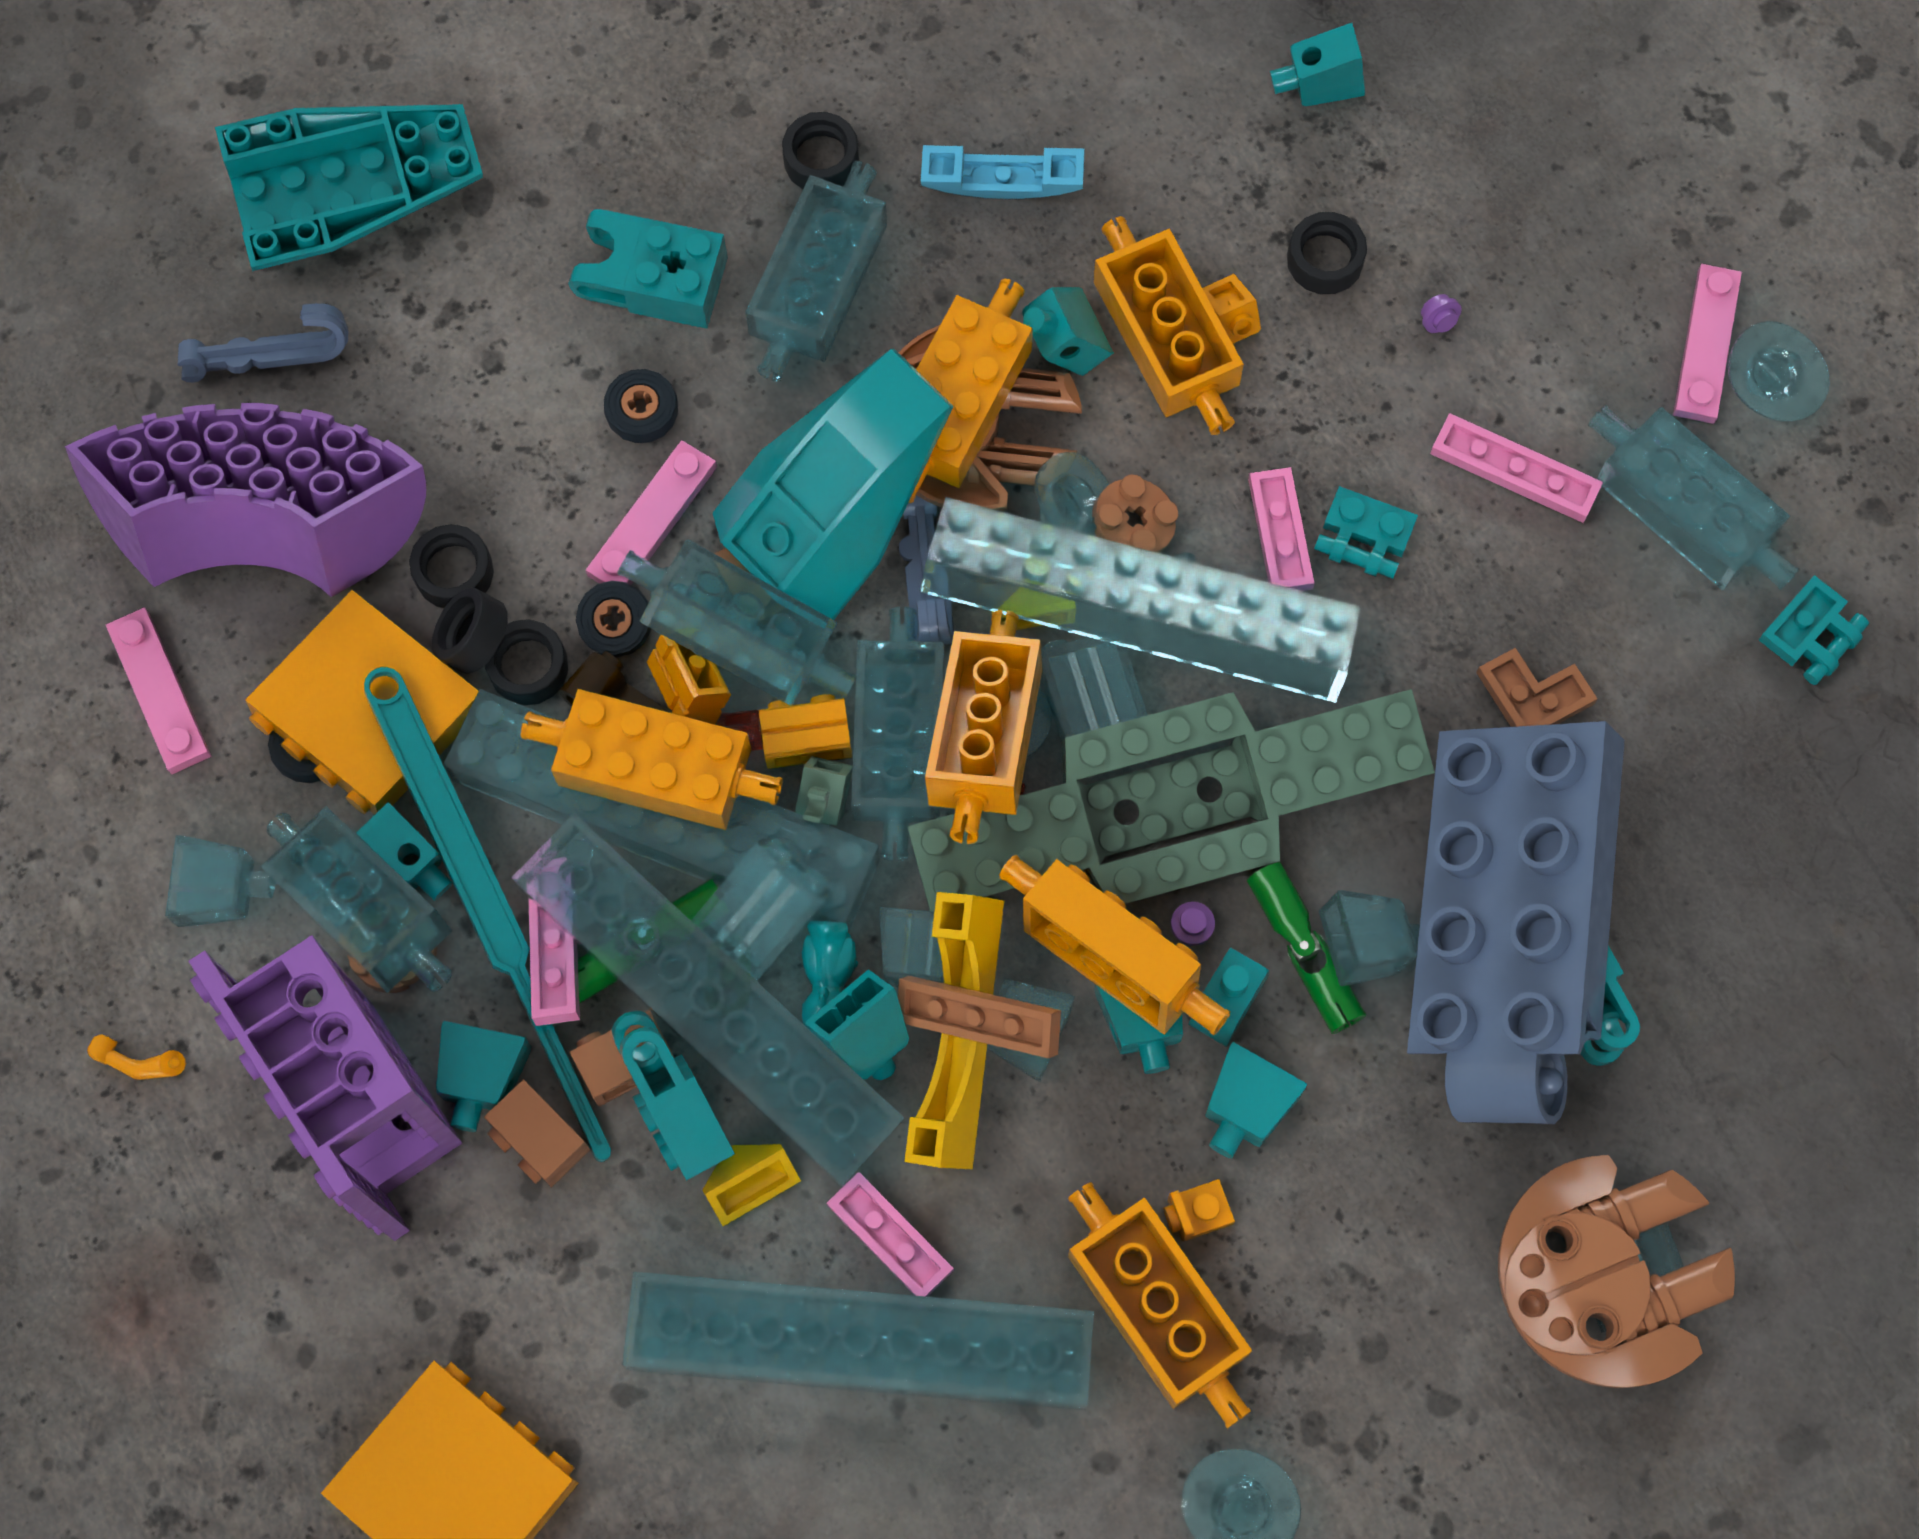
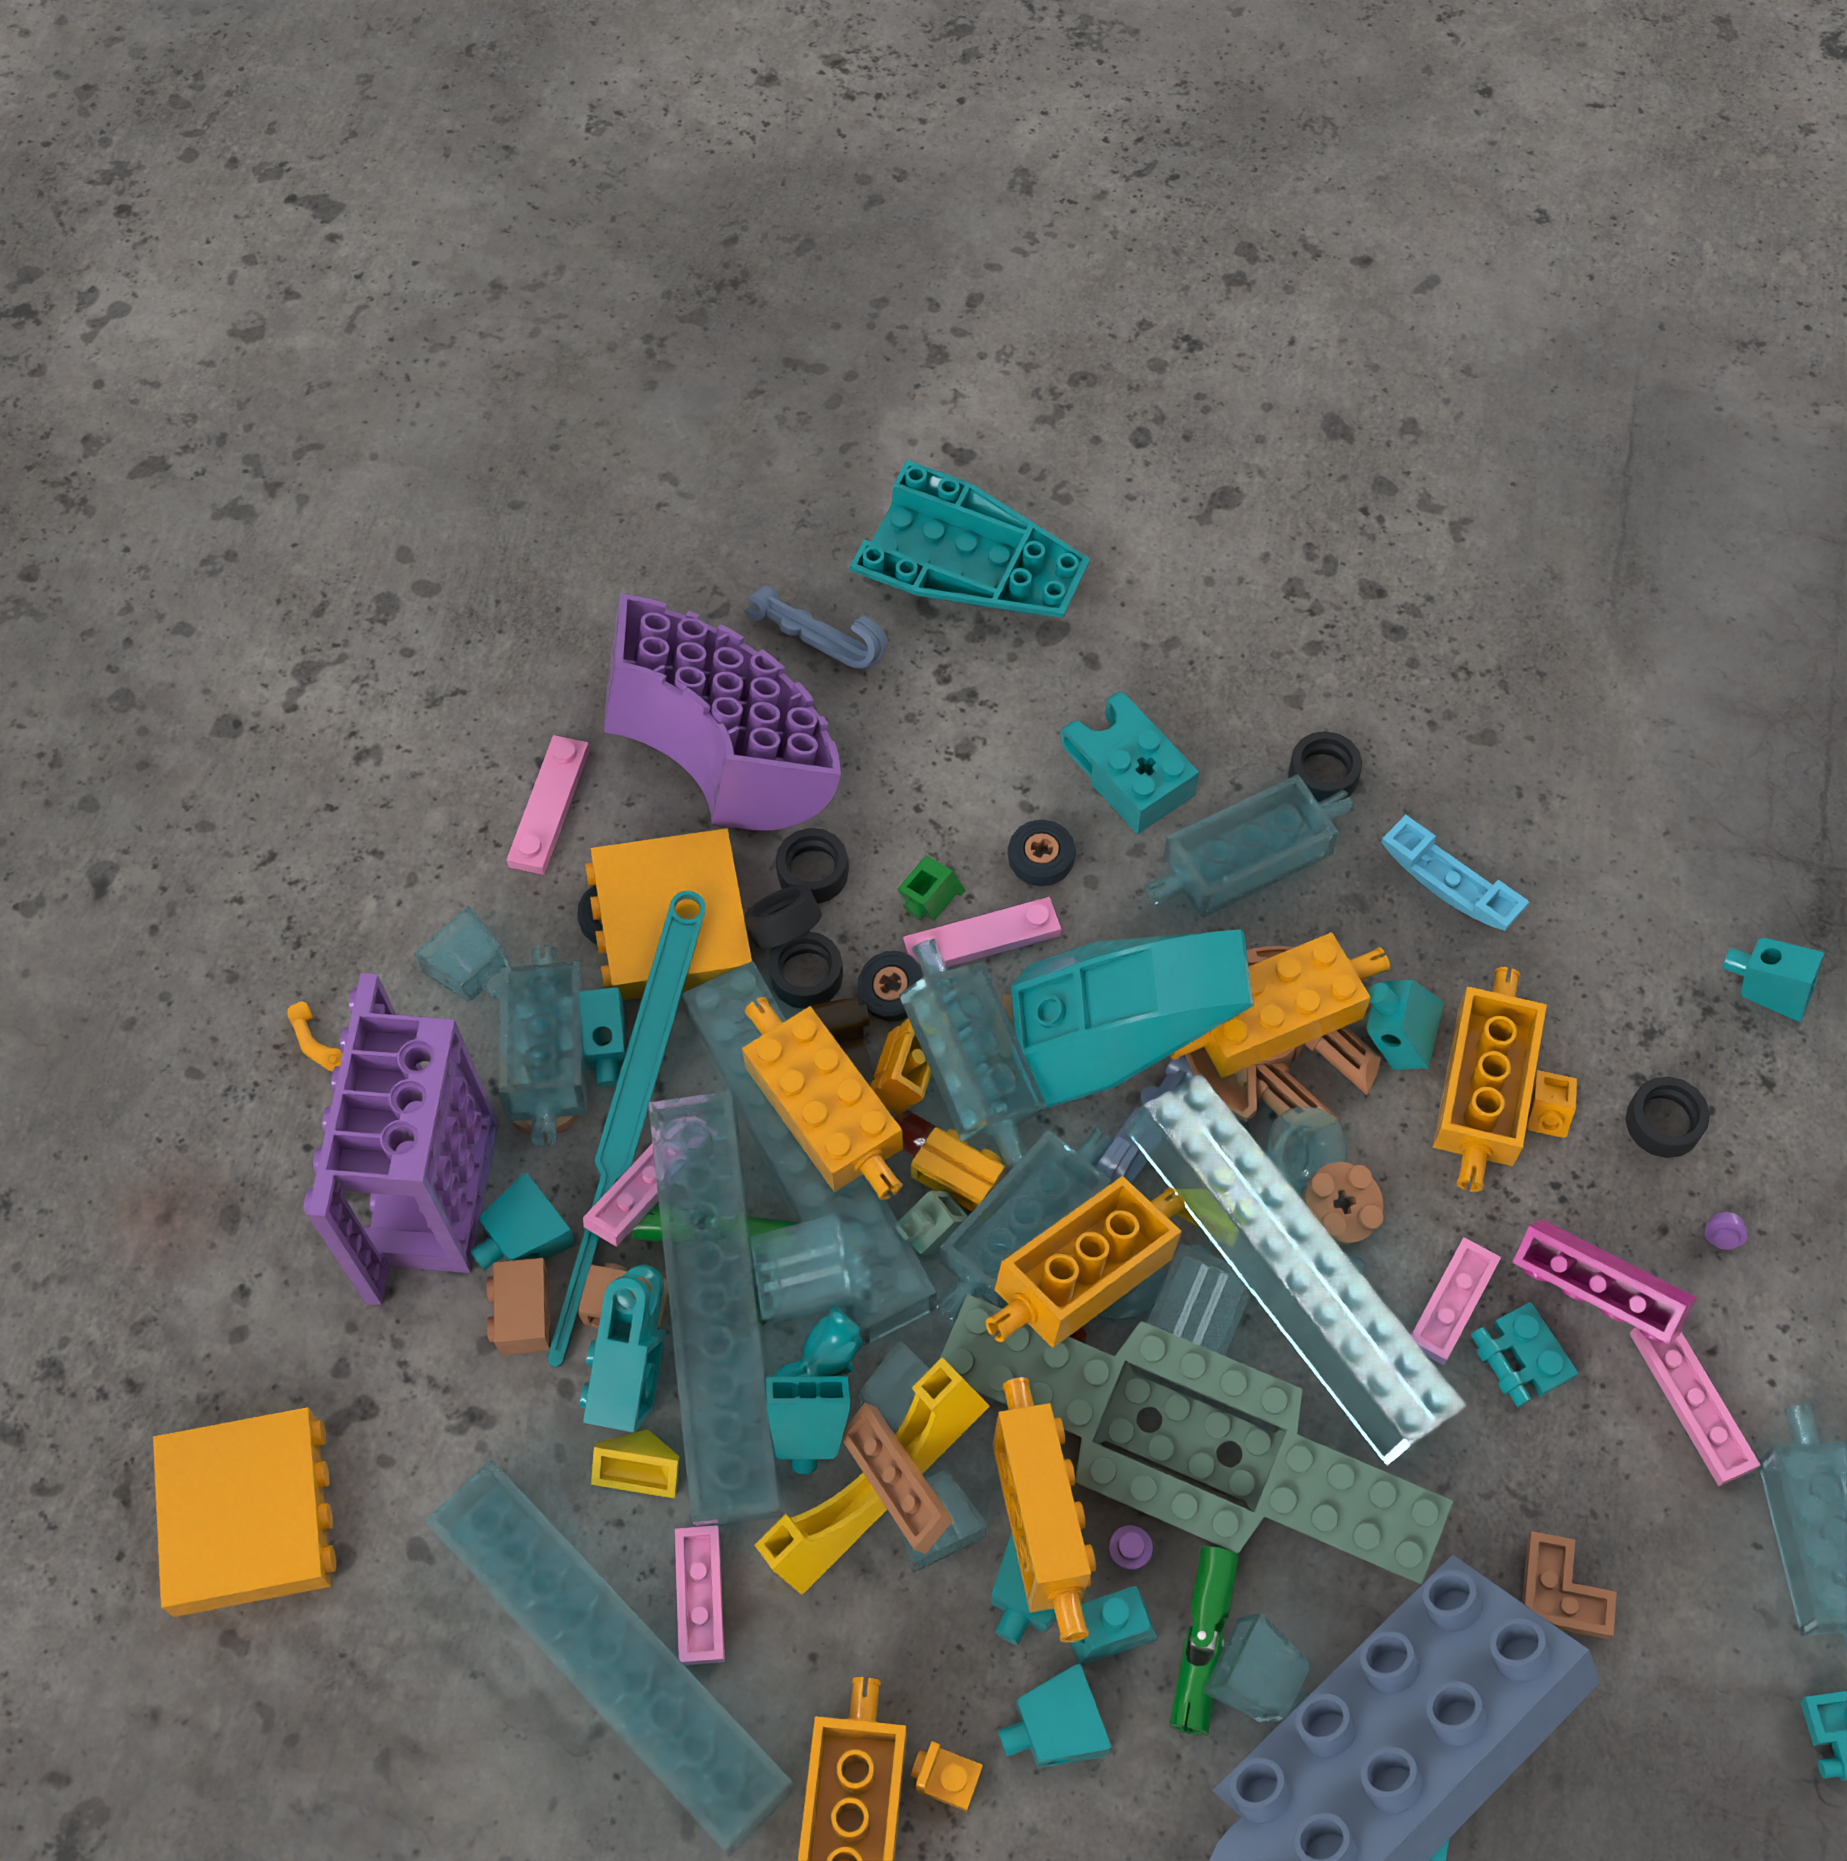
camera: 40 degrees right, 10 degrees down
(570, 502) = (929, 889): none -> green brick
(1385, 426) = (1604, 1281): none -> dark pink brick

